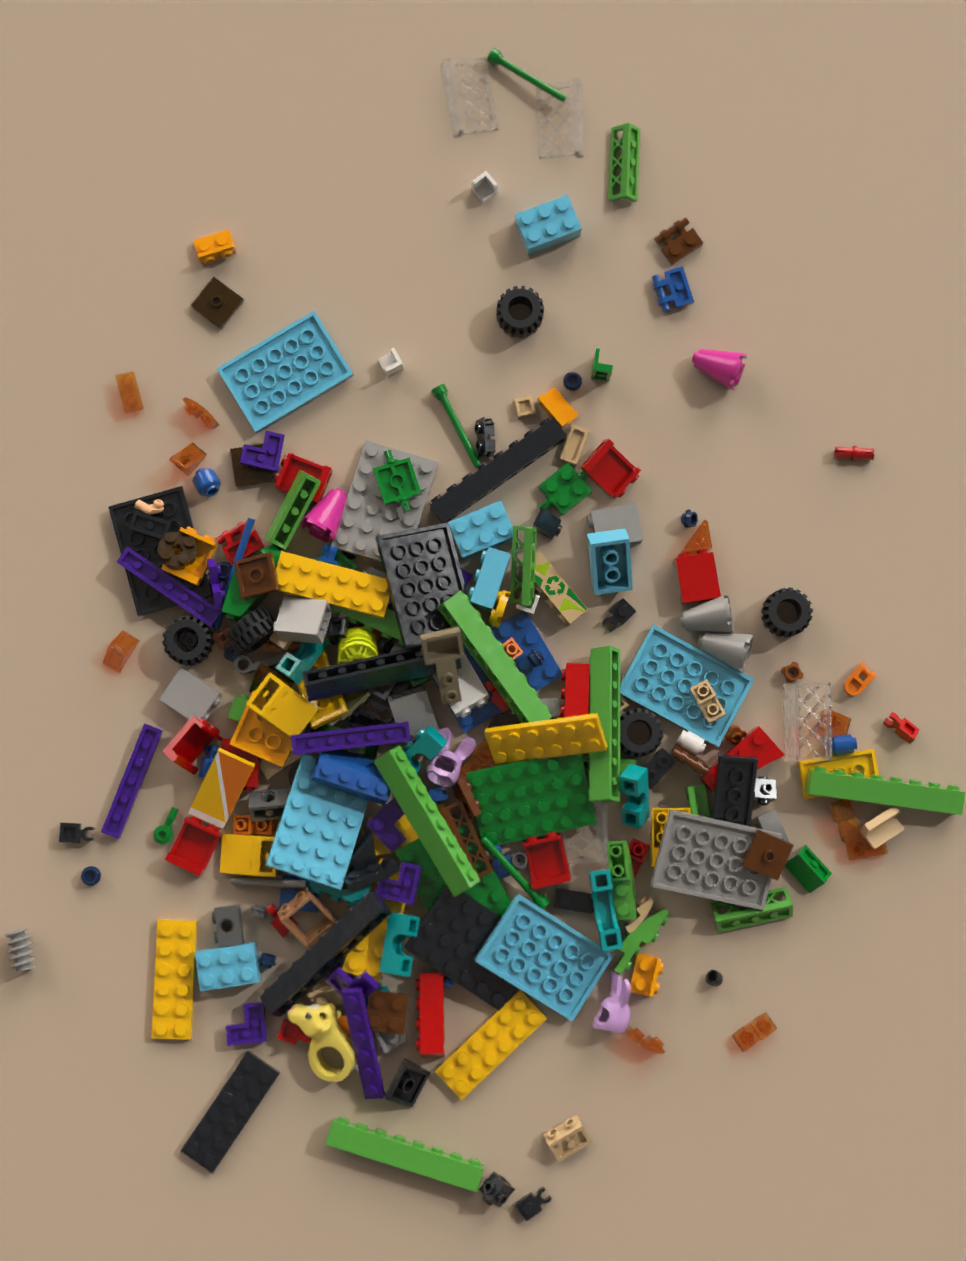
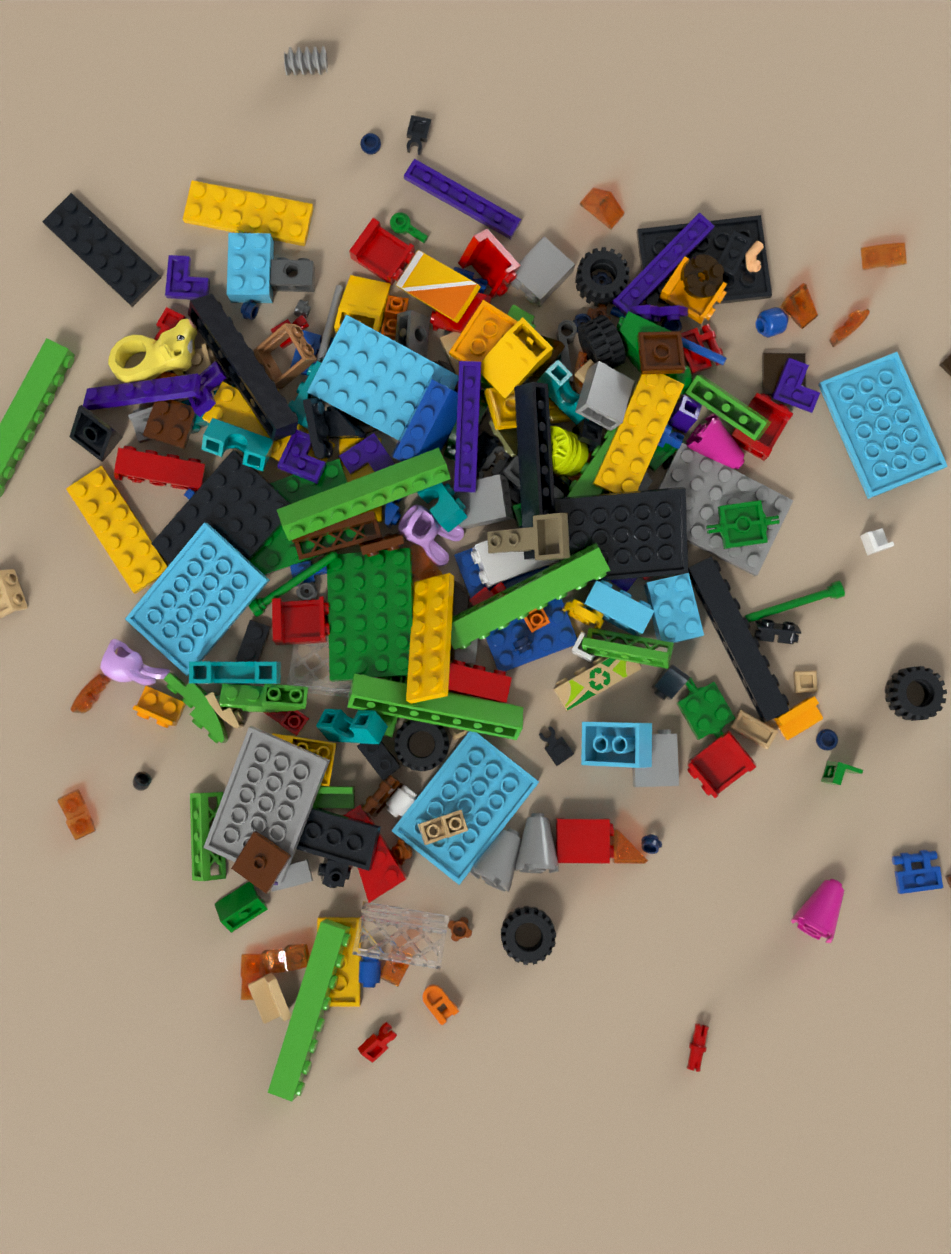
camera: 100 degrees right, 0 degrees up
(304, 546) = (685, 414): none -> dark purple brick

